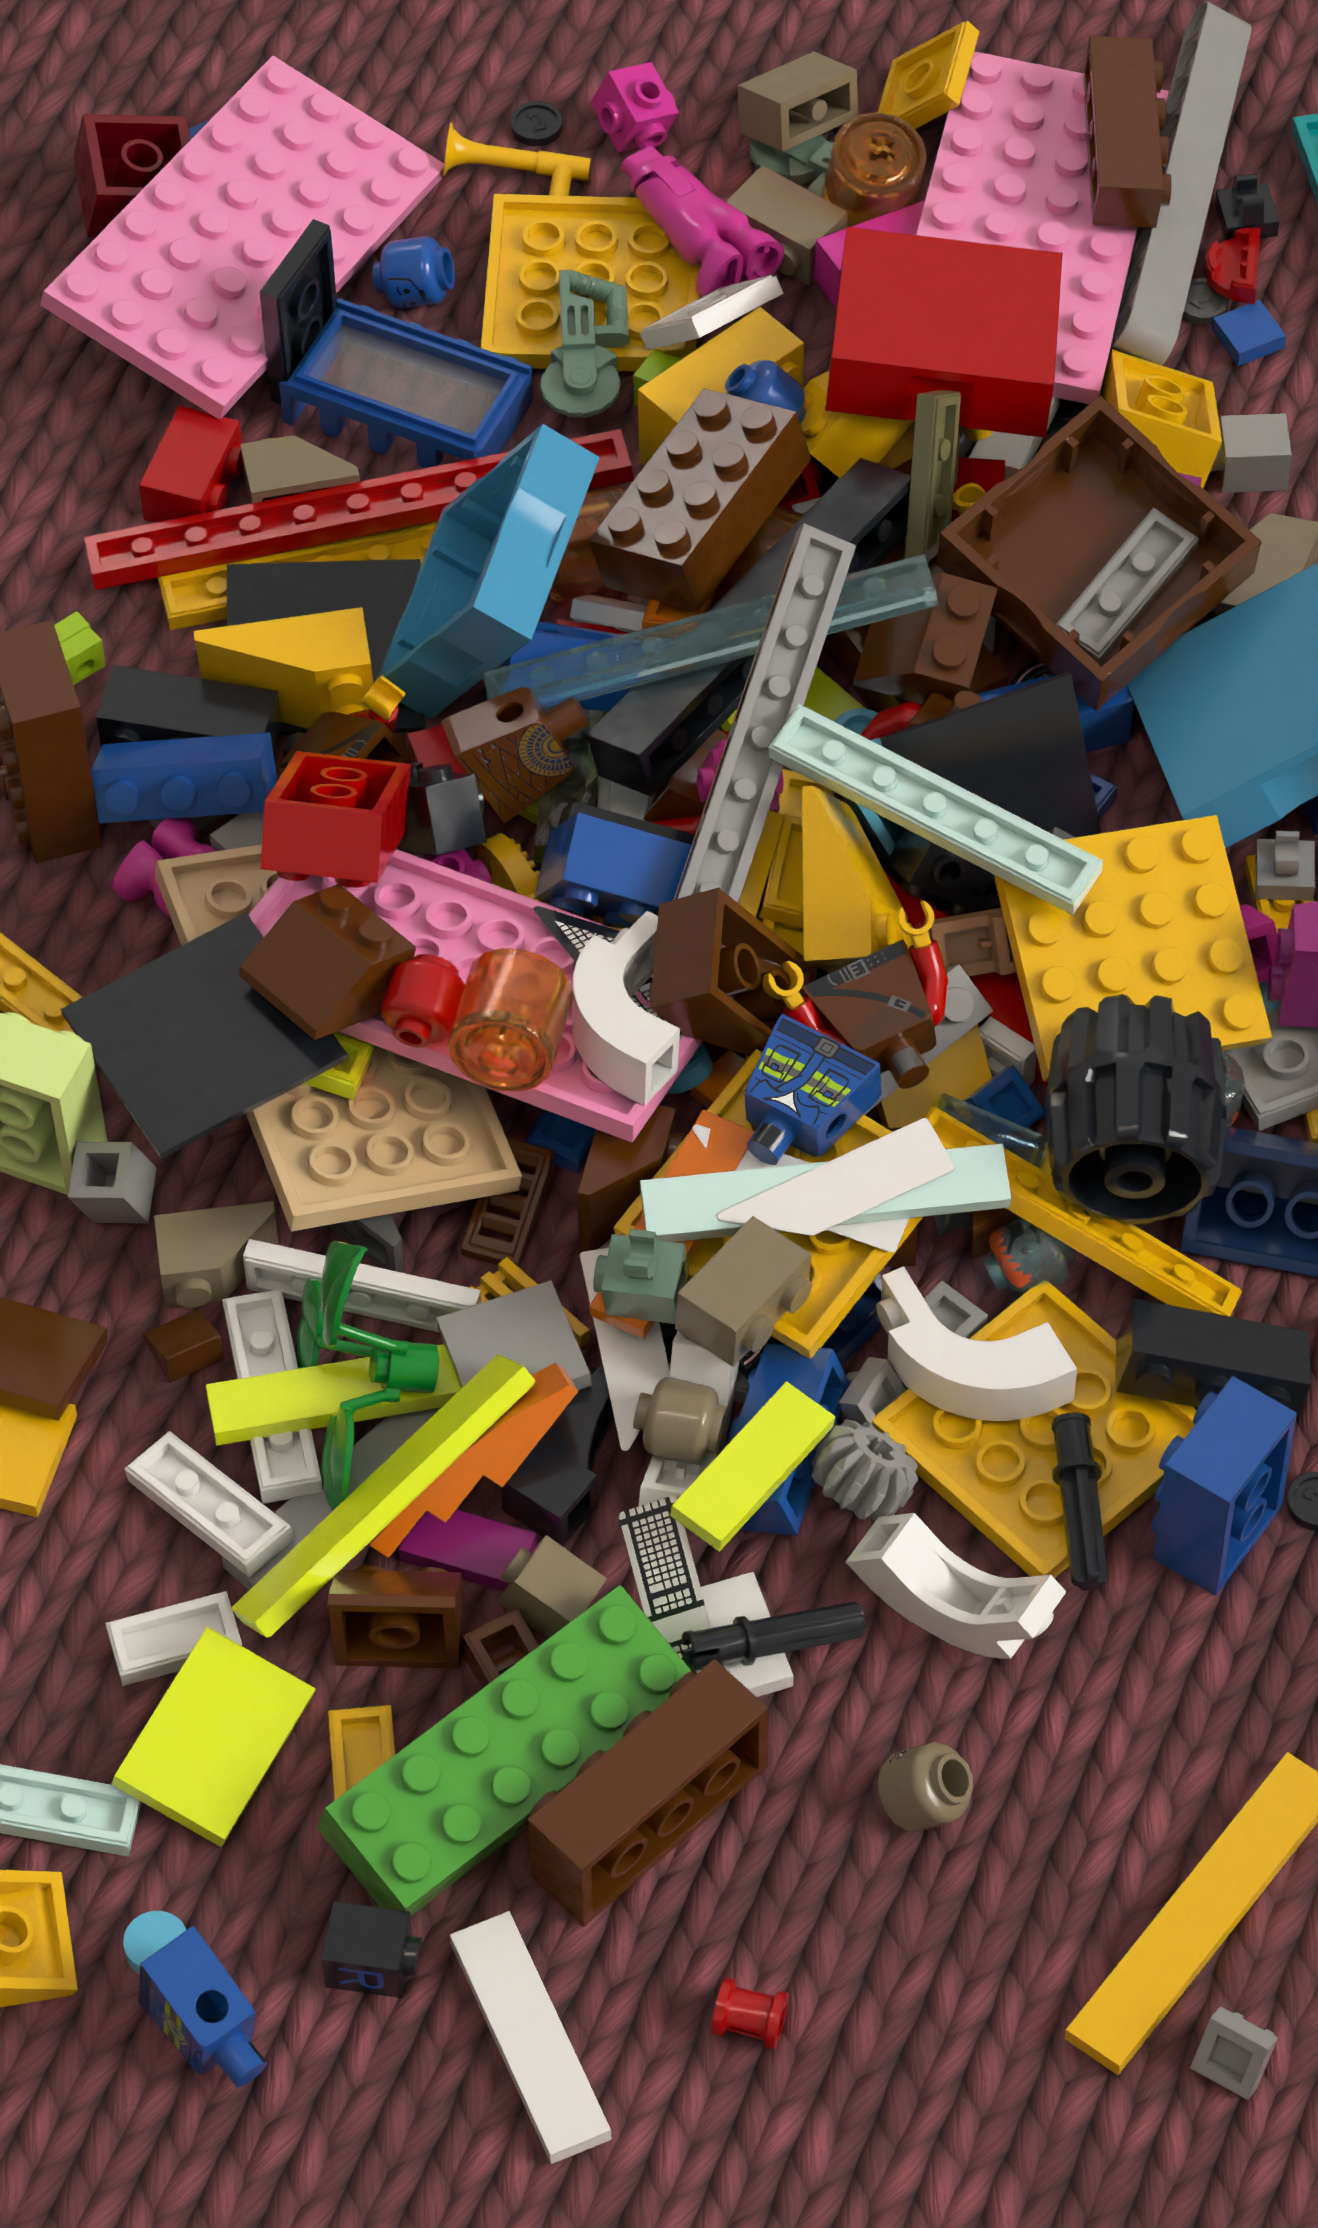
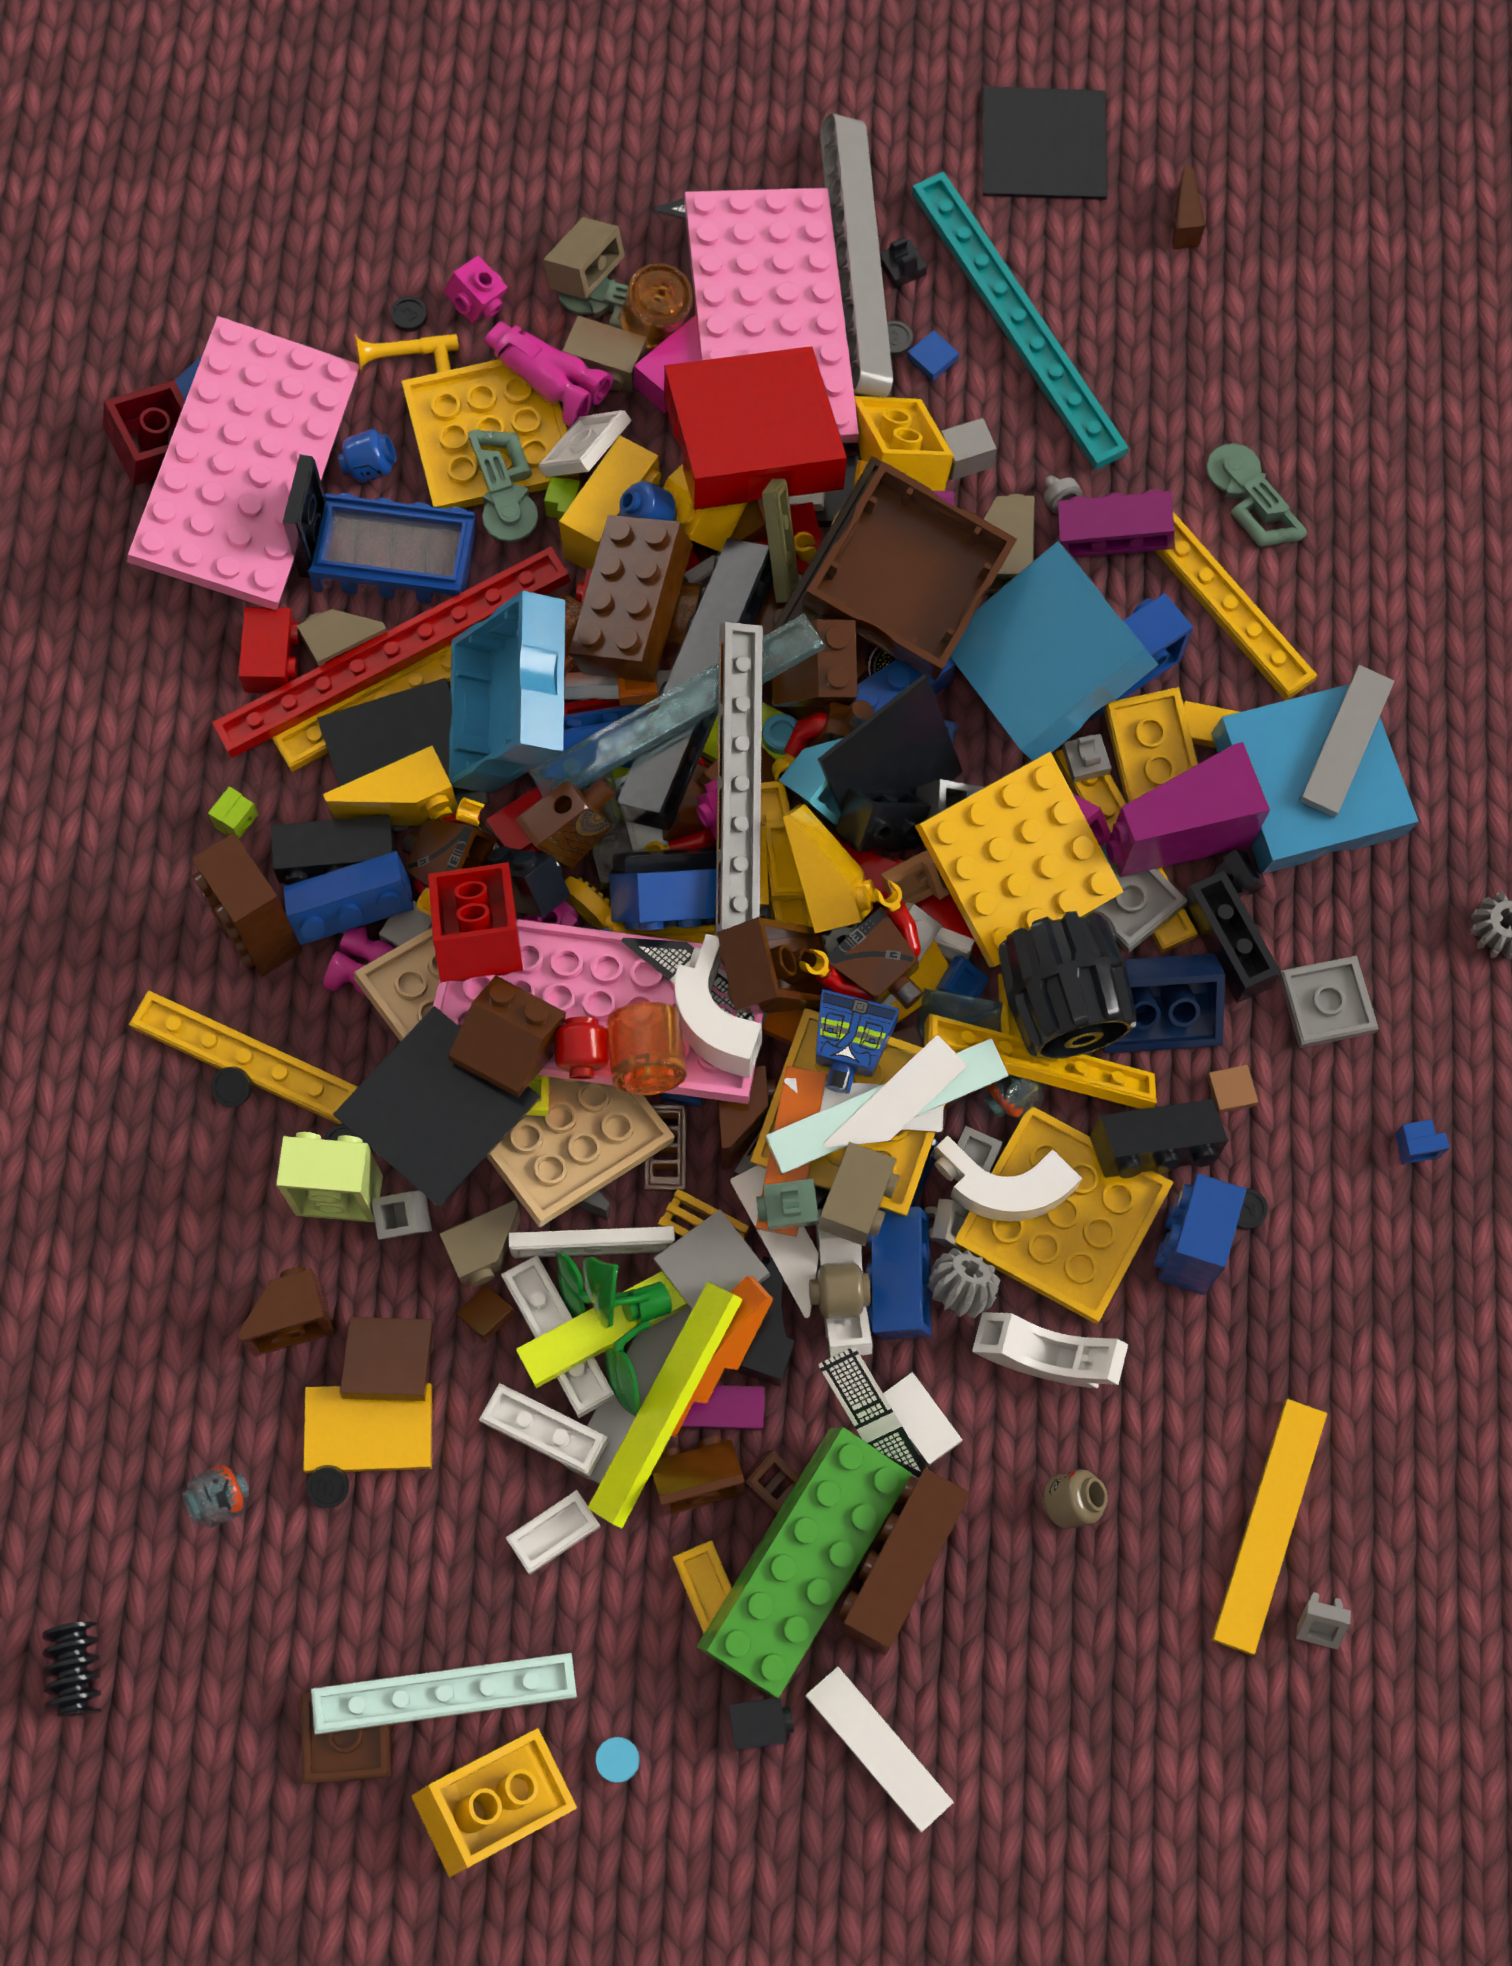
camera: 20 degrees left, 15 degrees up
(186, 1989) = (653, 1799): blue torso -> none
(213, 1736) = (605, 1601): neon yellow tile -> none
(549, 1586) = (789, 1429): dark tan brick -> none
(750, 2013) = (1014, 1691): red bush -> none
(752, 1466) = (899, 1312): neon yellow tile -> none
(772, 1635) = (929, 1428): black axle -> none
(930, 77) = (665, 221): yellow tile -> none
(936, 809) = (873, 806): light aqua tile -> none
(1078, 1479) = (1107, 1265): black axle -> none
(1124, 132) = (815, 233): reddish brown brick -> none
(1128, 584) = (932, 588): light grey tile -> none
(1233, 265) = (908, 308): red tile -> none

